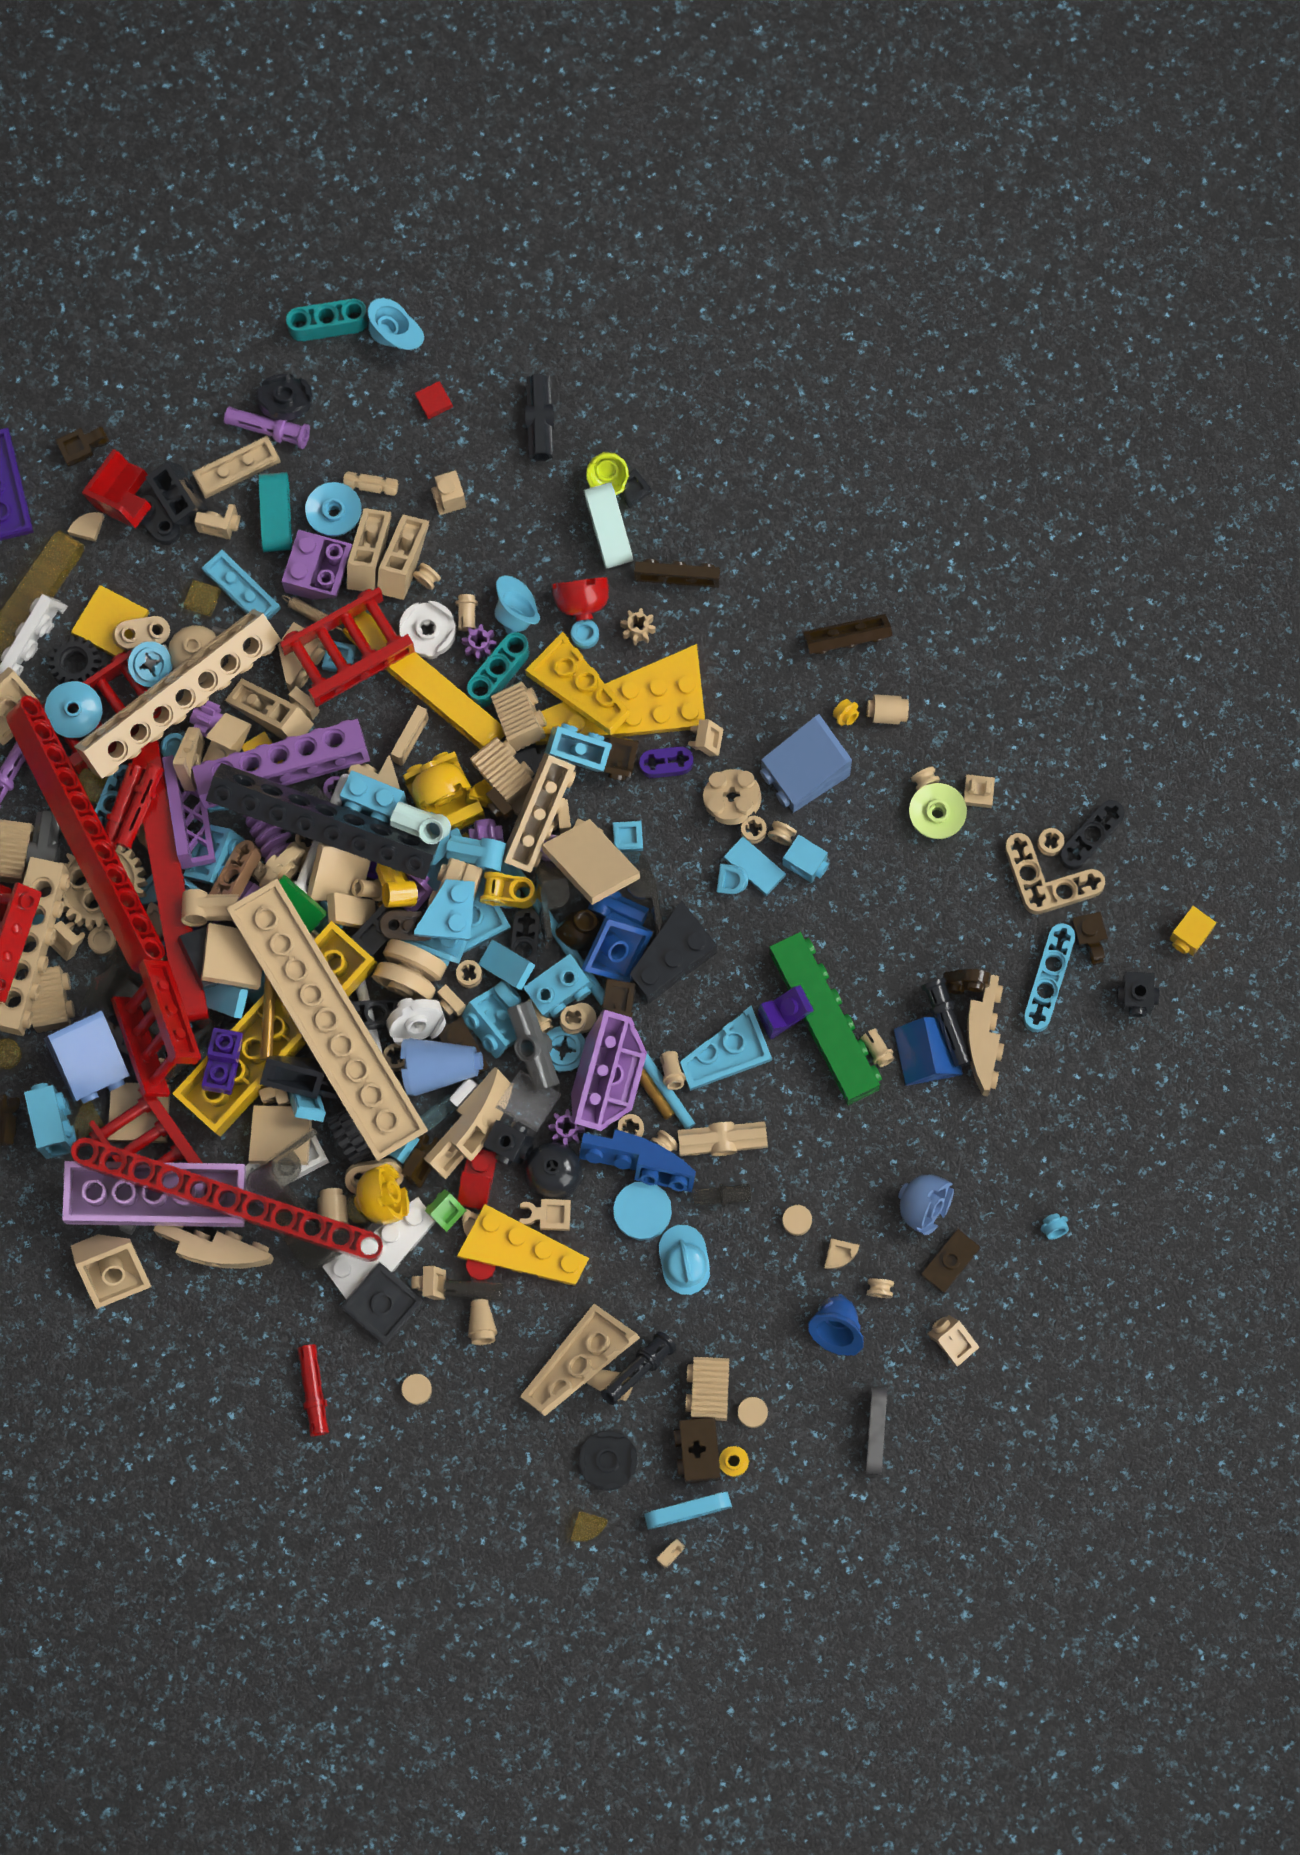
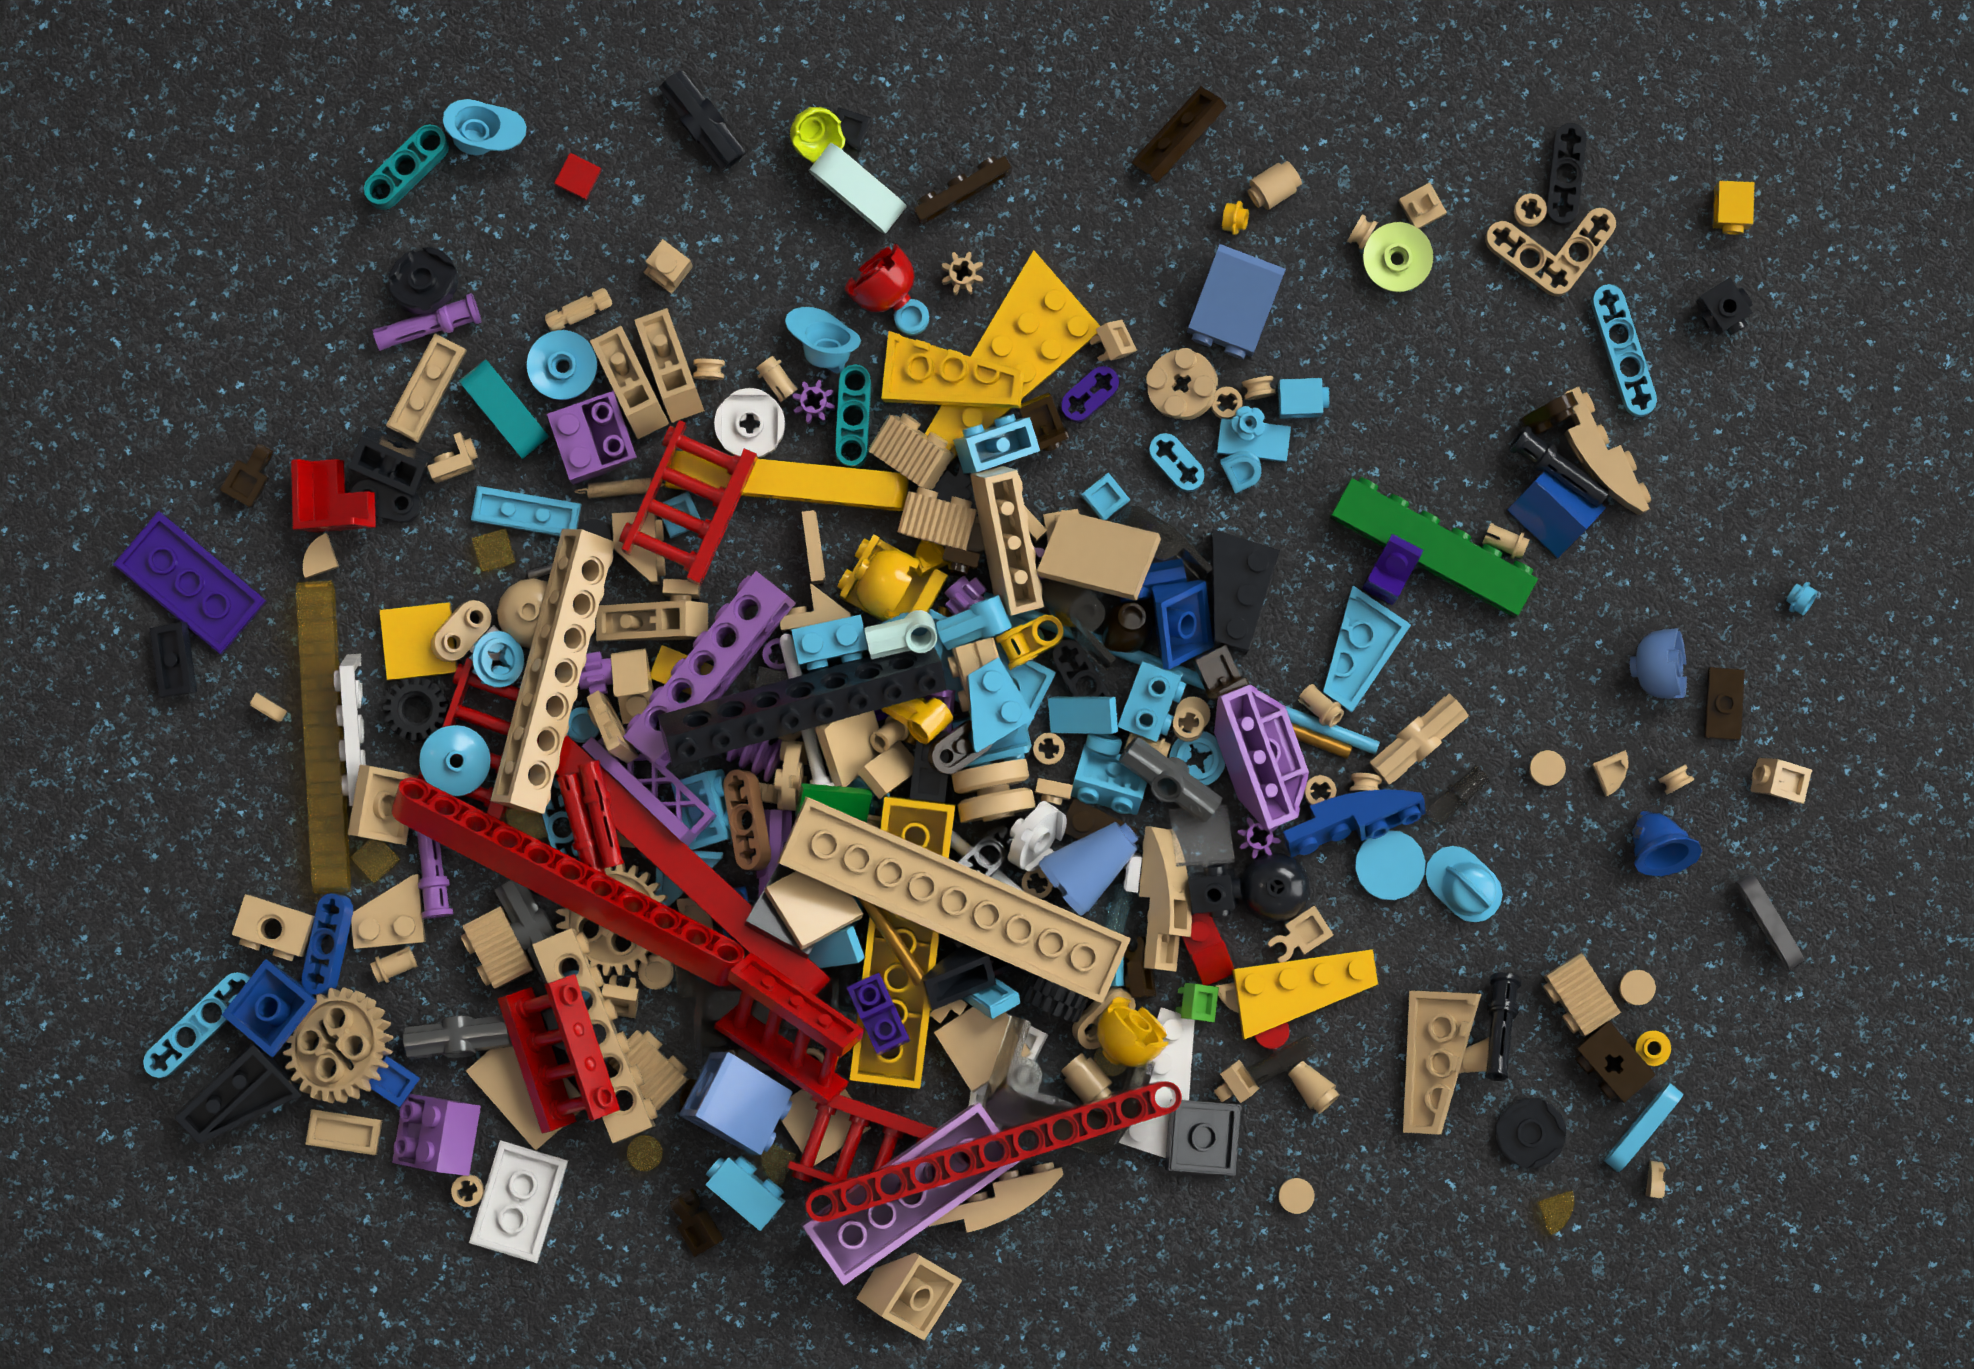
camera: 40 degrees left, 10 degrees up
(202, 907) = (744, 875): tan piece -> none
(314, 1399) = (1201, 1273): red pin -> none
(685, 846) = (1170, 469): none -> medium azure beam
(753, 856) = (1246, 413): none -> medium azure plate
(1091, 933) = (1633, 276): dark brown plate -> none

